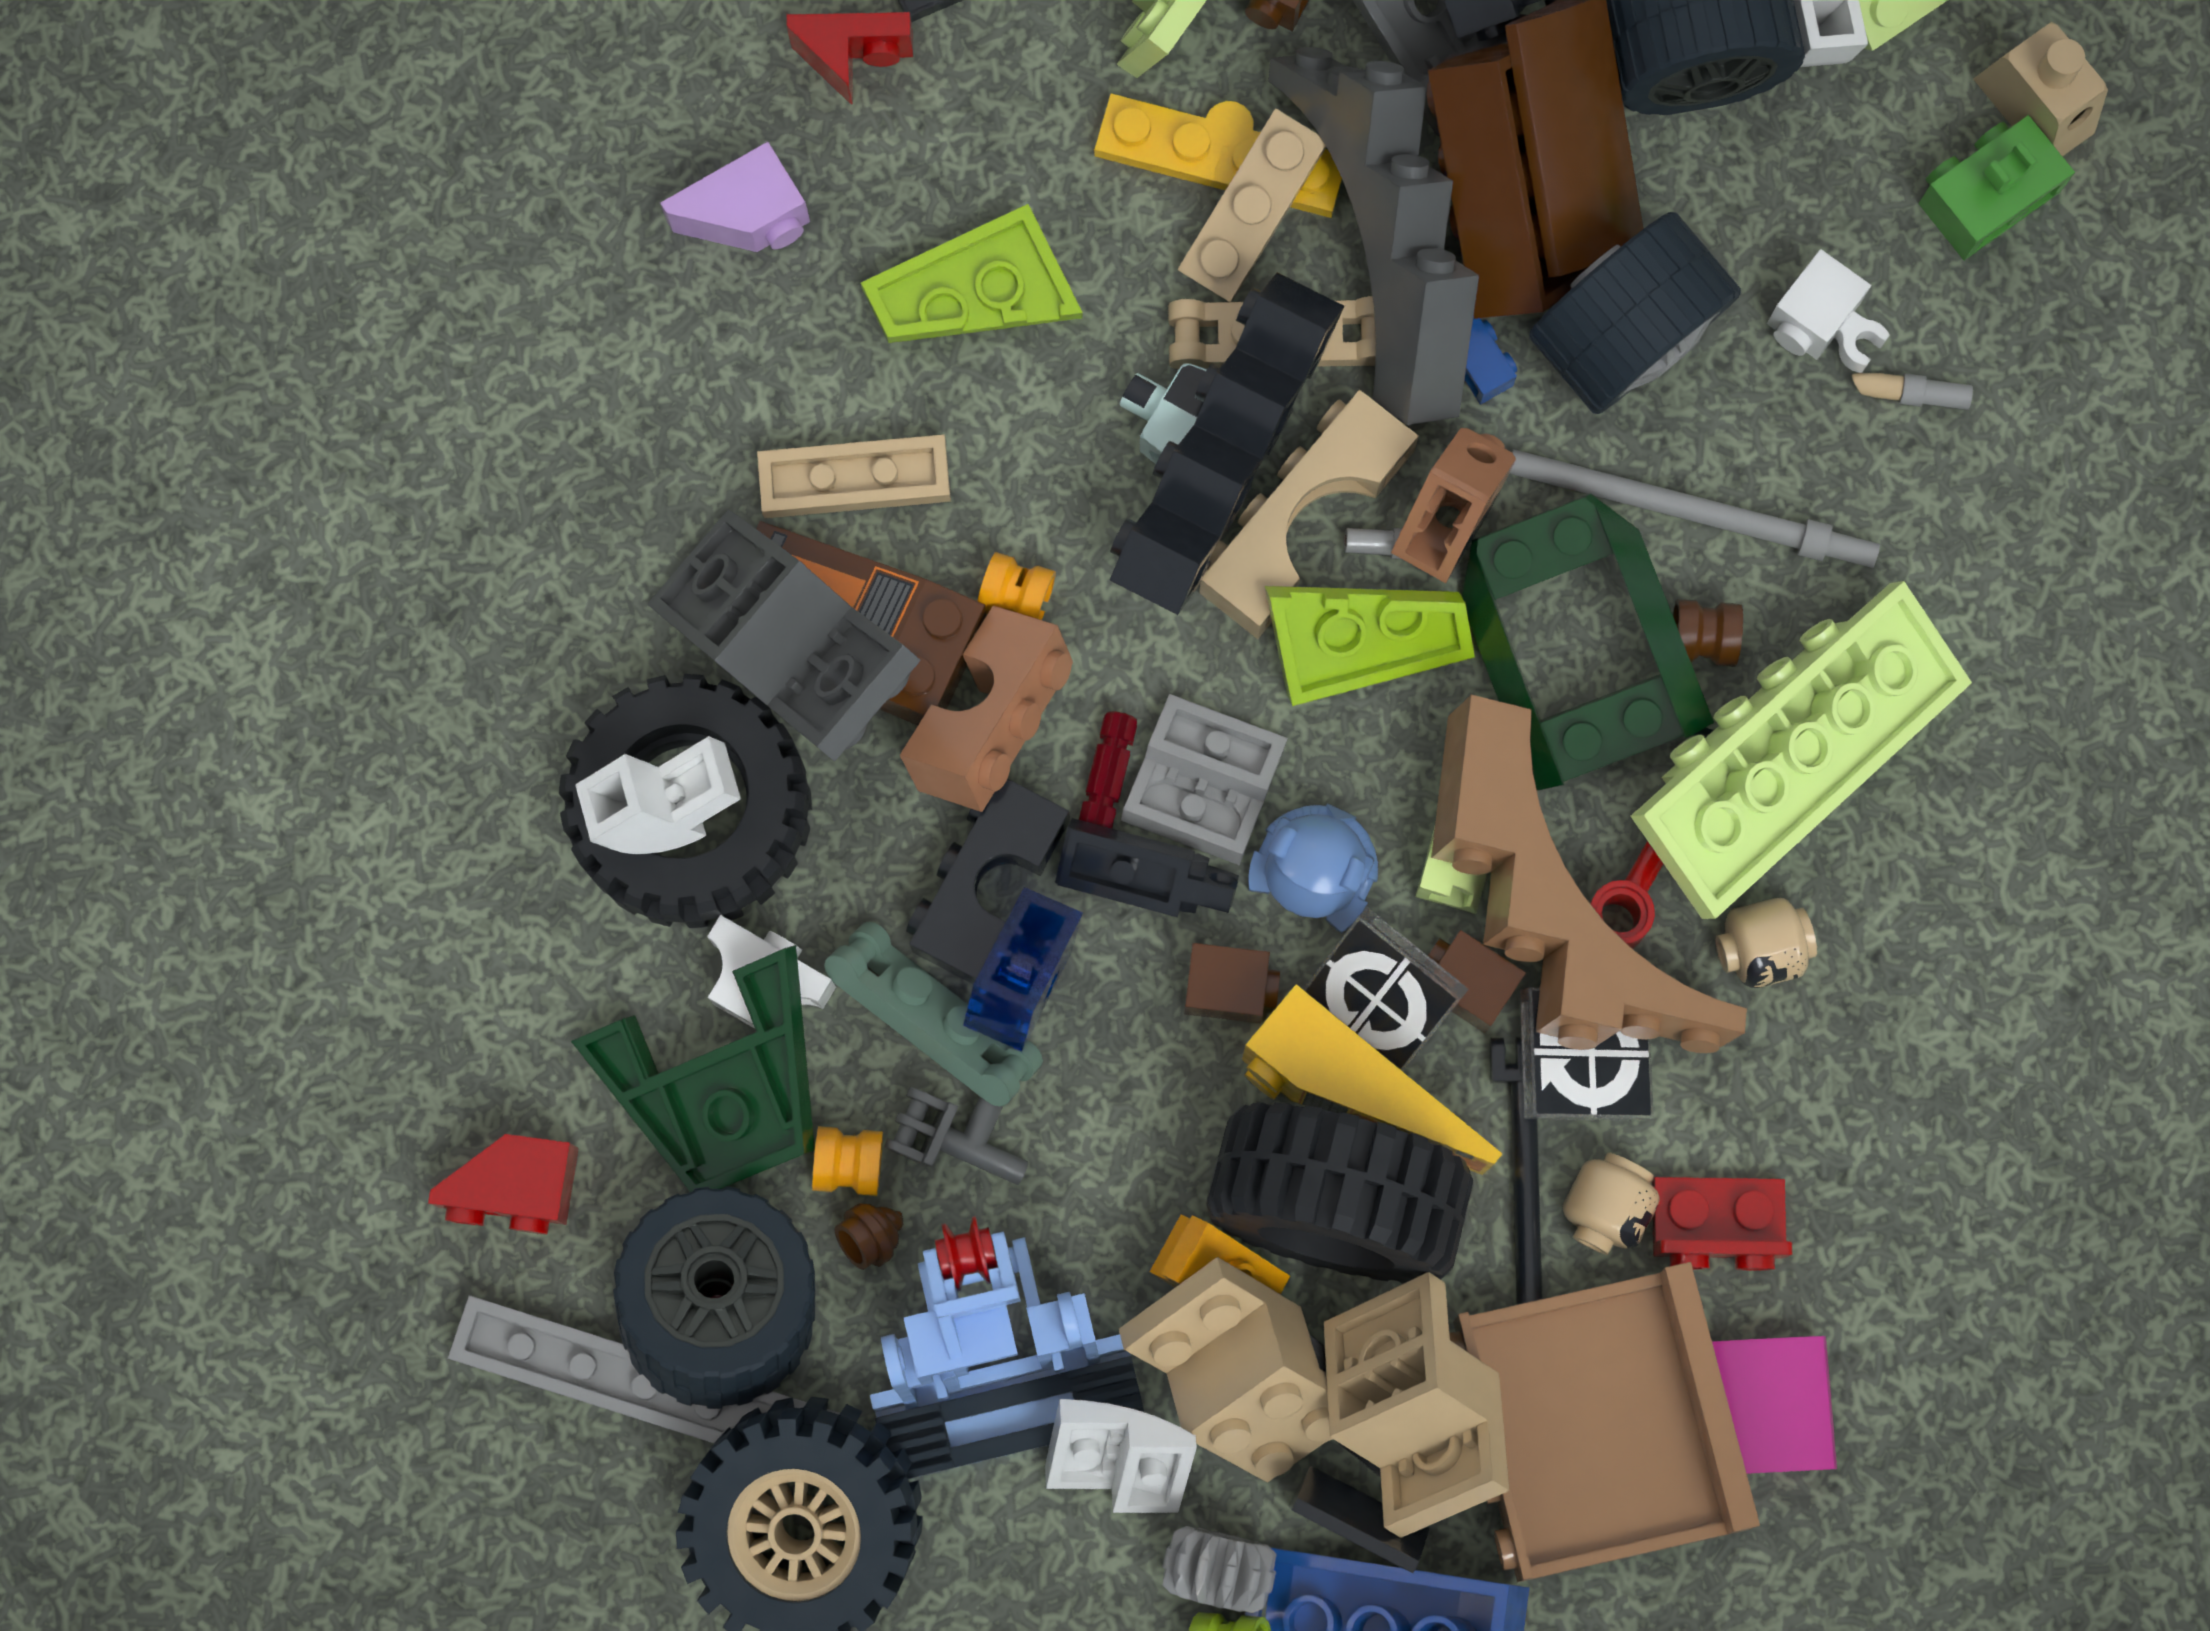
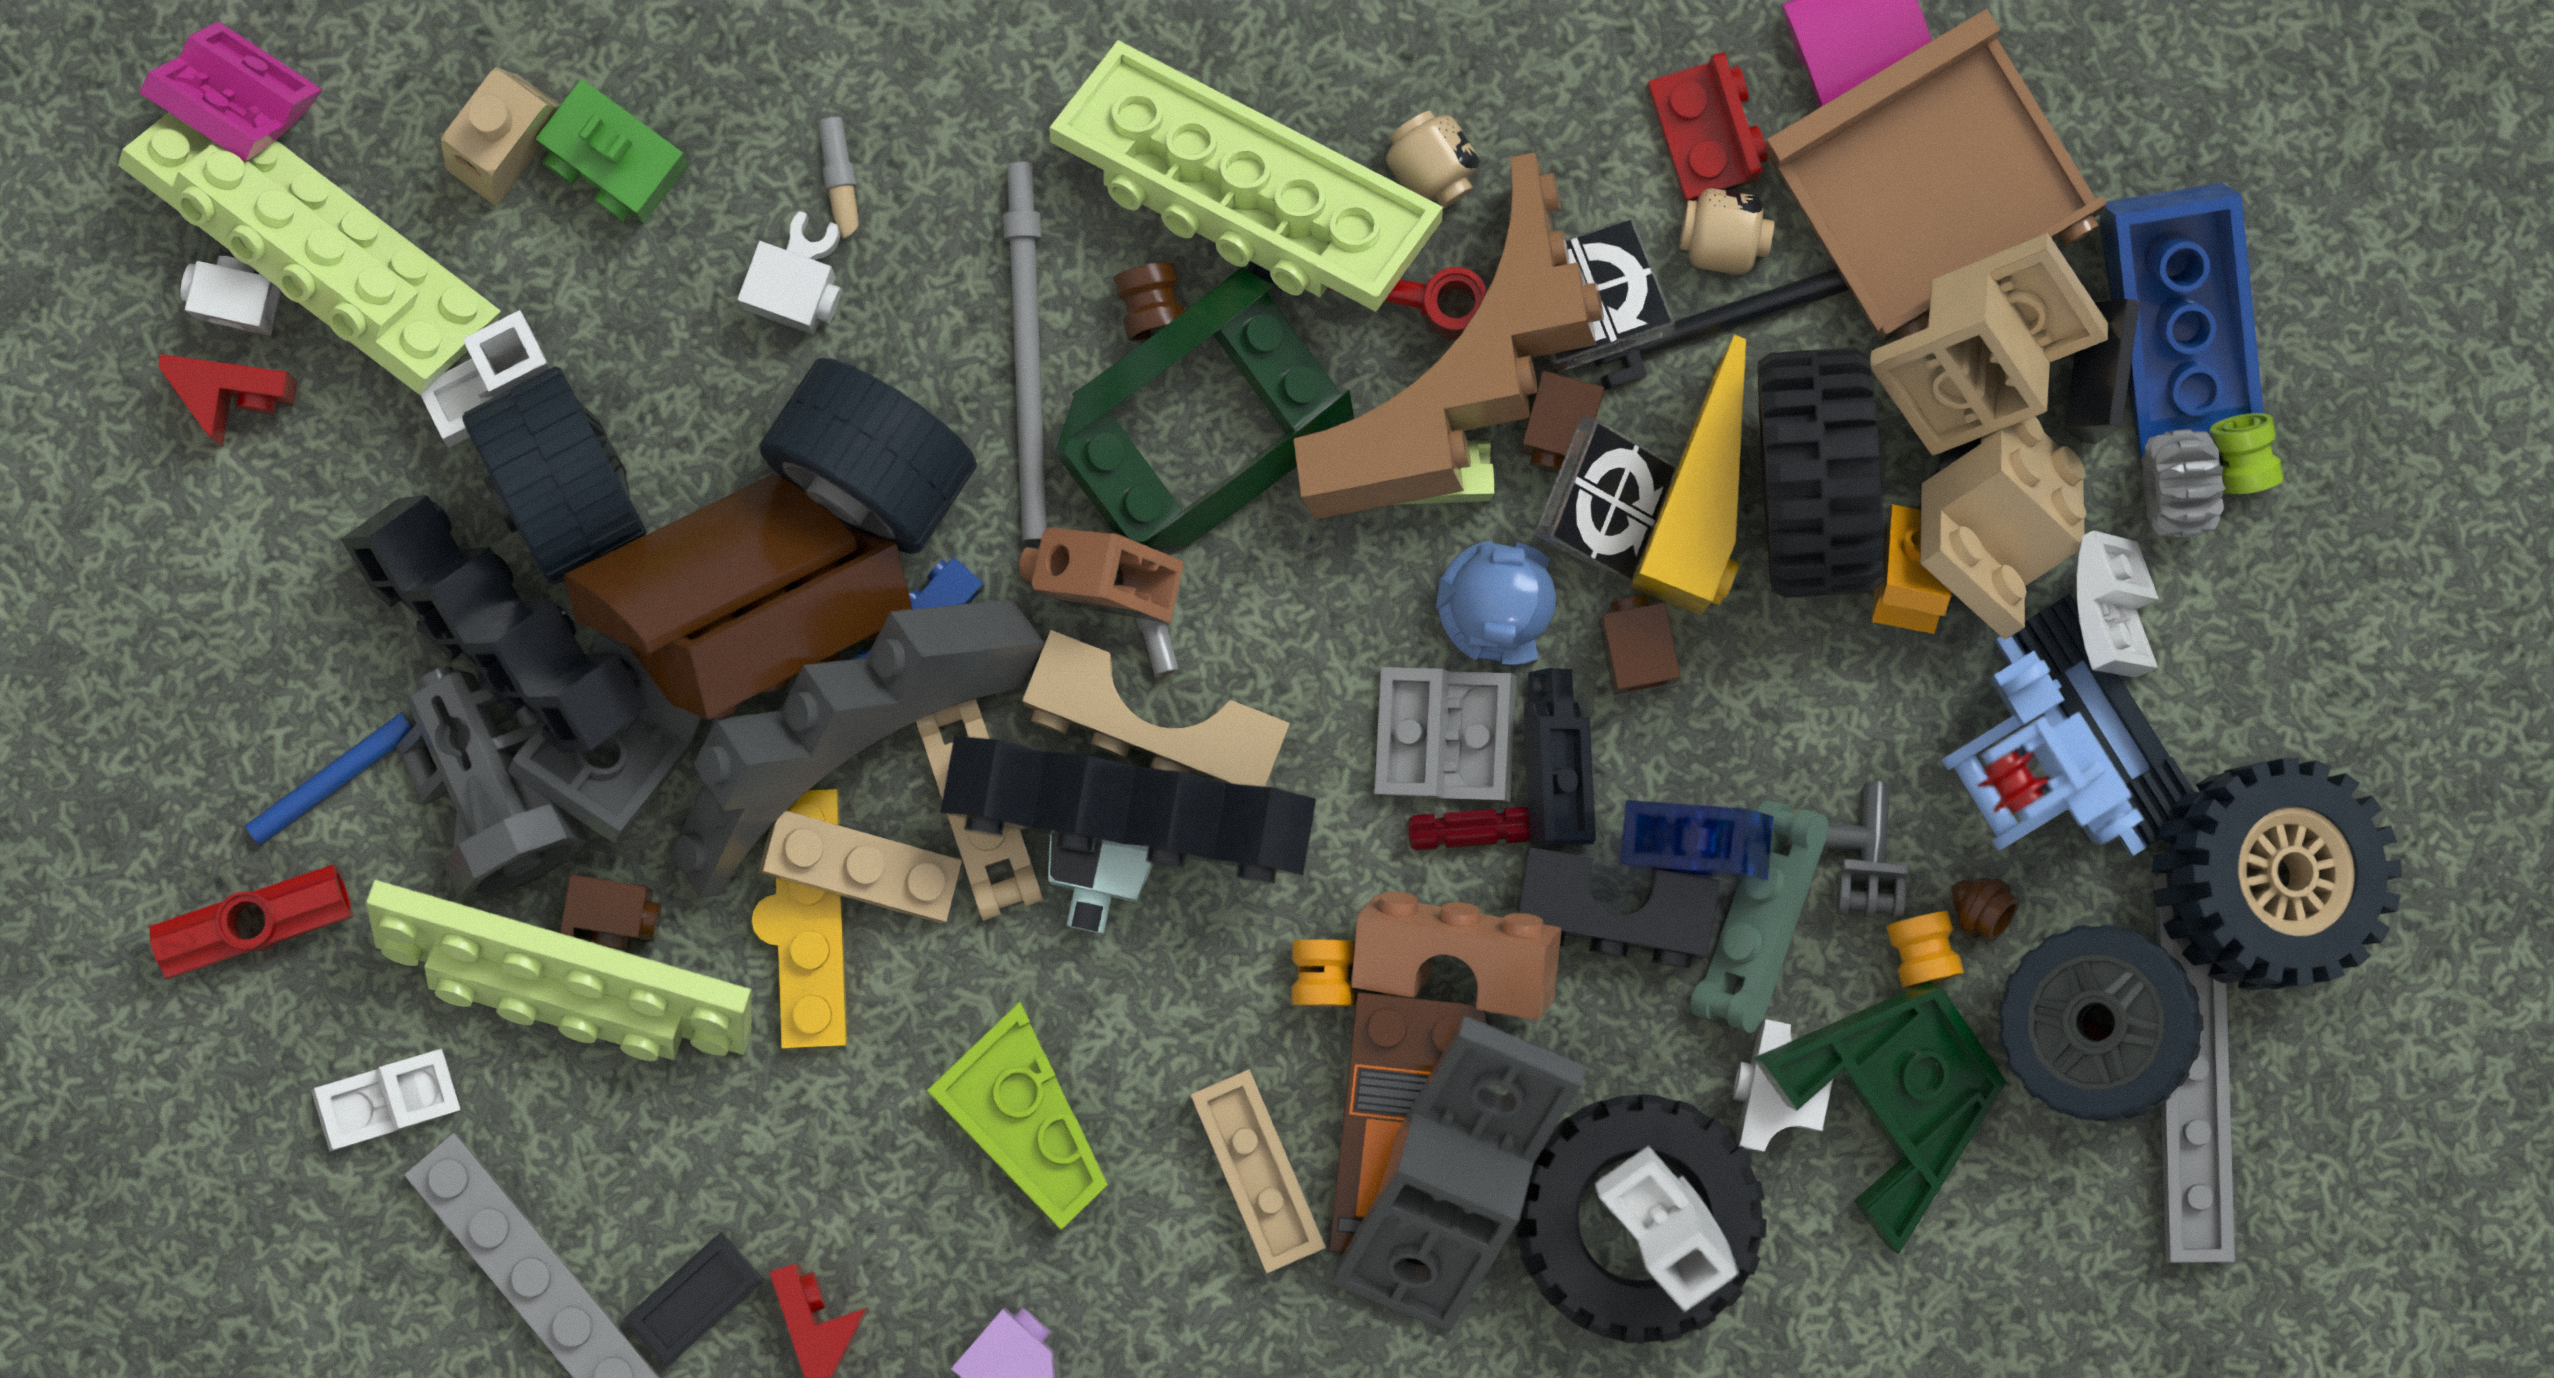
camera: 115 degrees left, 5 degrees up
(512, 1179) = (2049, 1257): red slope -> none
(1363, 636) = (1263, 624): lime wing -> none

